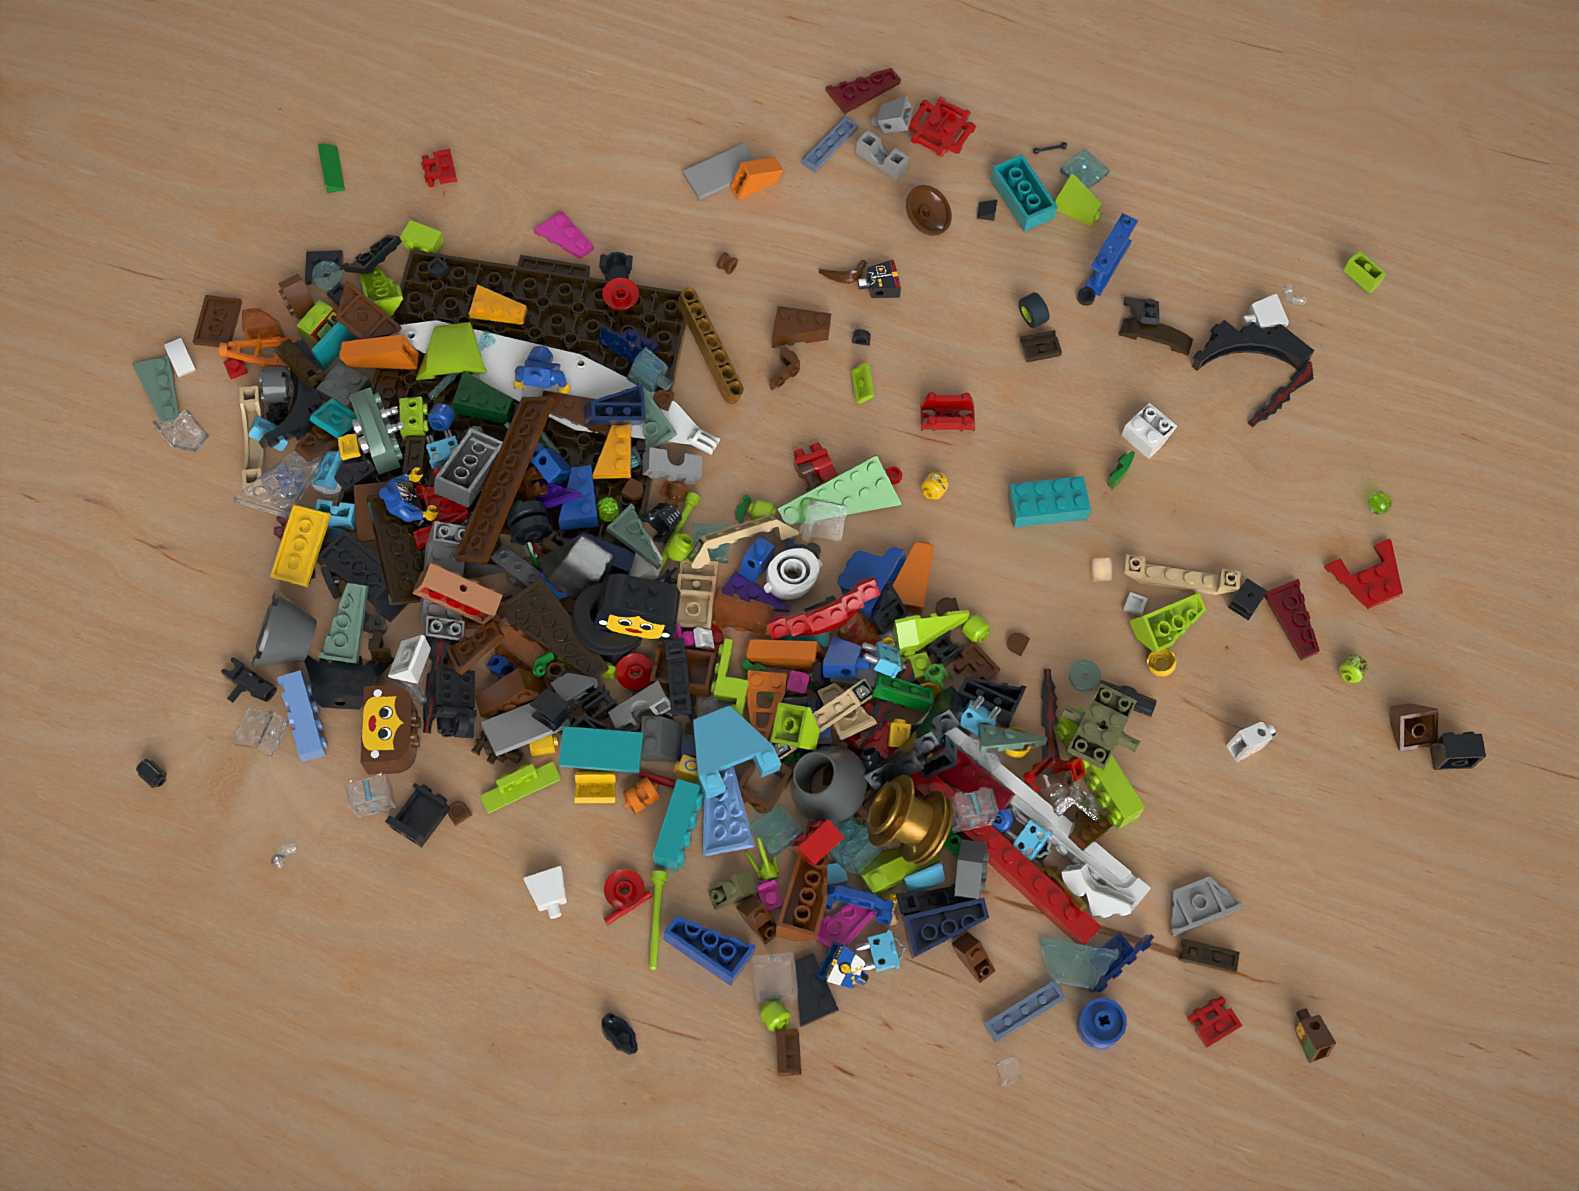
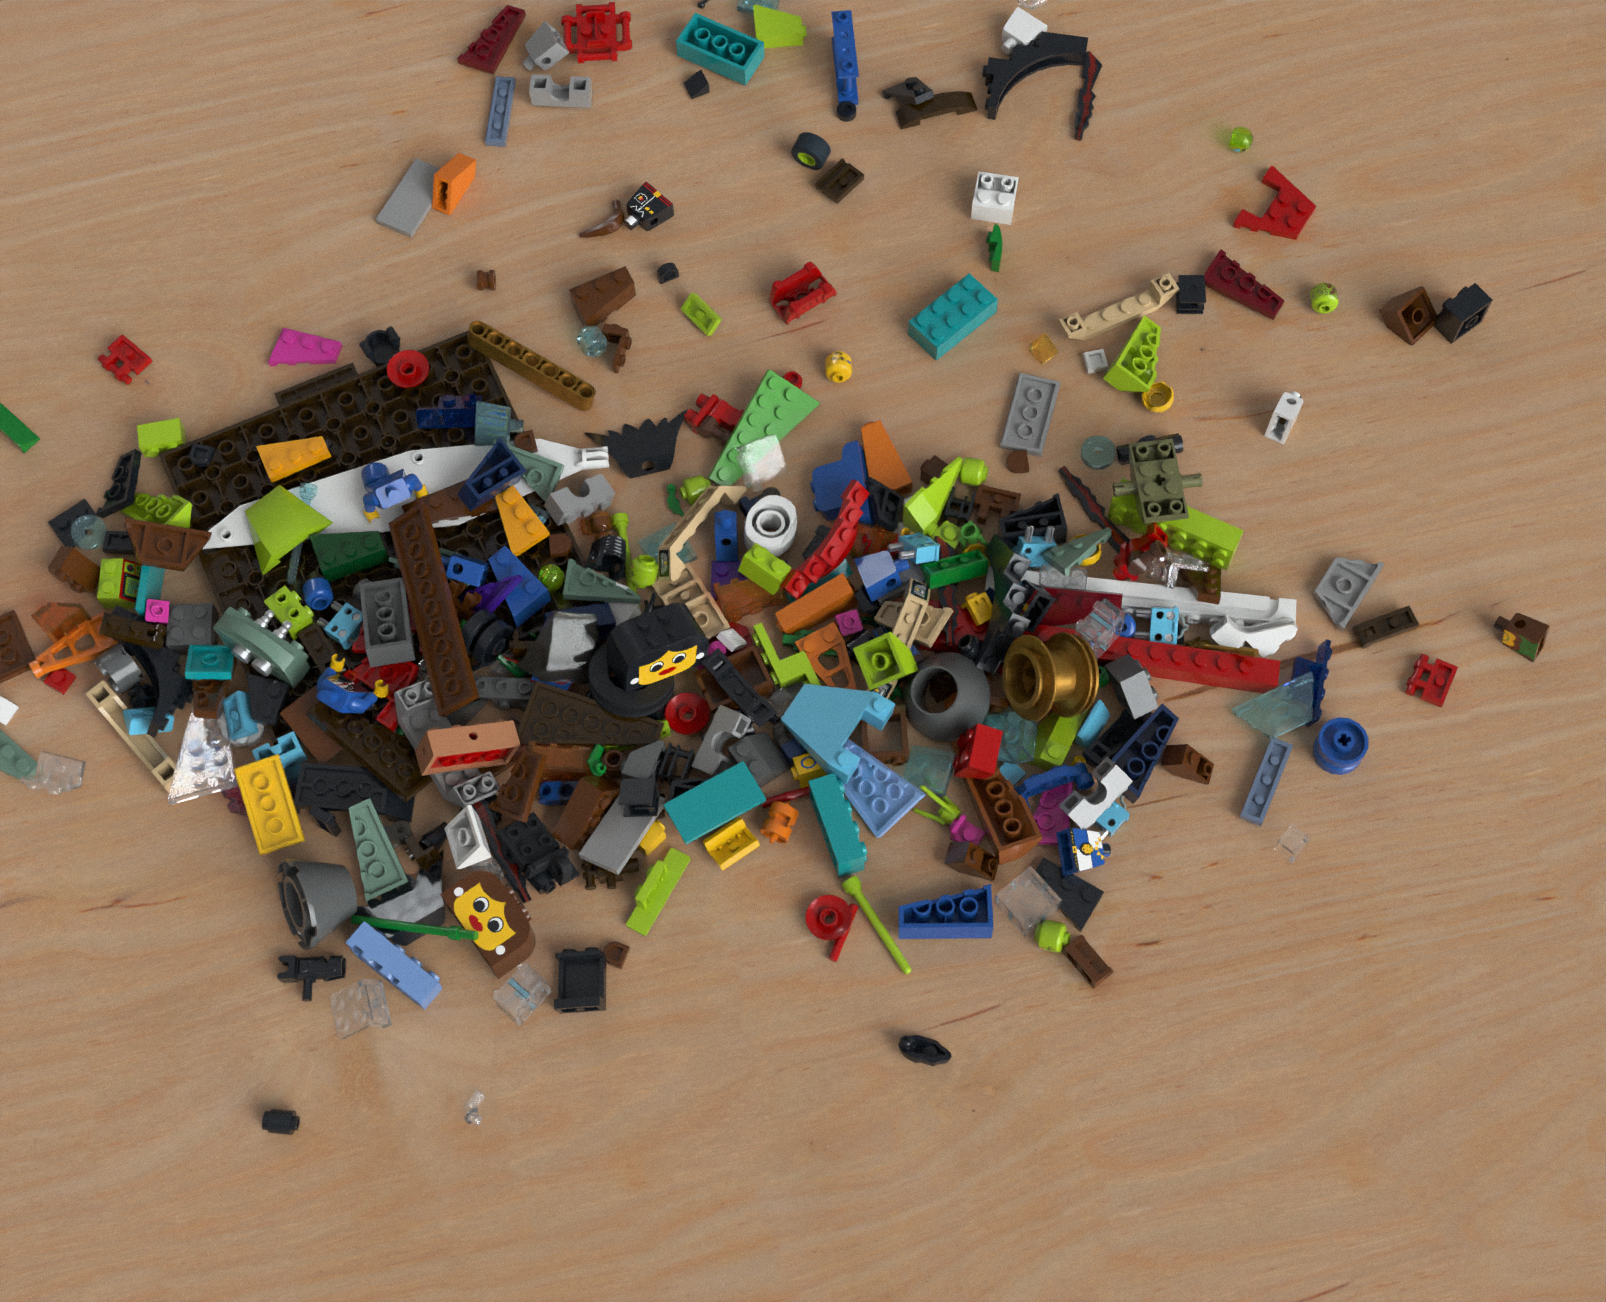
camera: 30 degrees left, 0 degrees up
(326, 360) = (157, 611): none -> dark pink bracket
(349, 446) = (246, 678): yellow bracket -> none
(352, 719) = (452, 932): none -> green bar
(380, 352) = (207, 570): orange slope -> none
(393, 643) = (434, 837): none -> black cone
(548, 890) = (758, 967): white torso -> none
(732, 890) = (929, 851): olive slope -> none
(746, 453) = (643, 445): none -> black piece
(762, 600) = (764, 568): none -> lime brick
(768, 354) = (591, 341): none -> clear light blue head
(867, 938) = (1087, 809): none -> arch
(928, 210) = (644, 116): reddish brown dish -> none
(1054, 613) = (1030, 414): none -> light grey tile

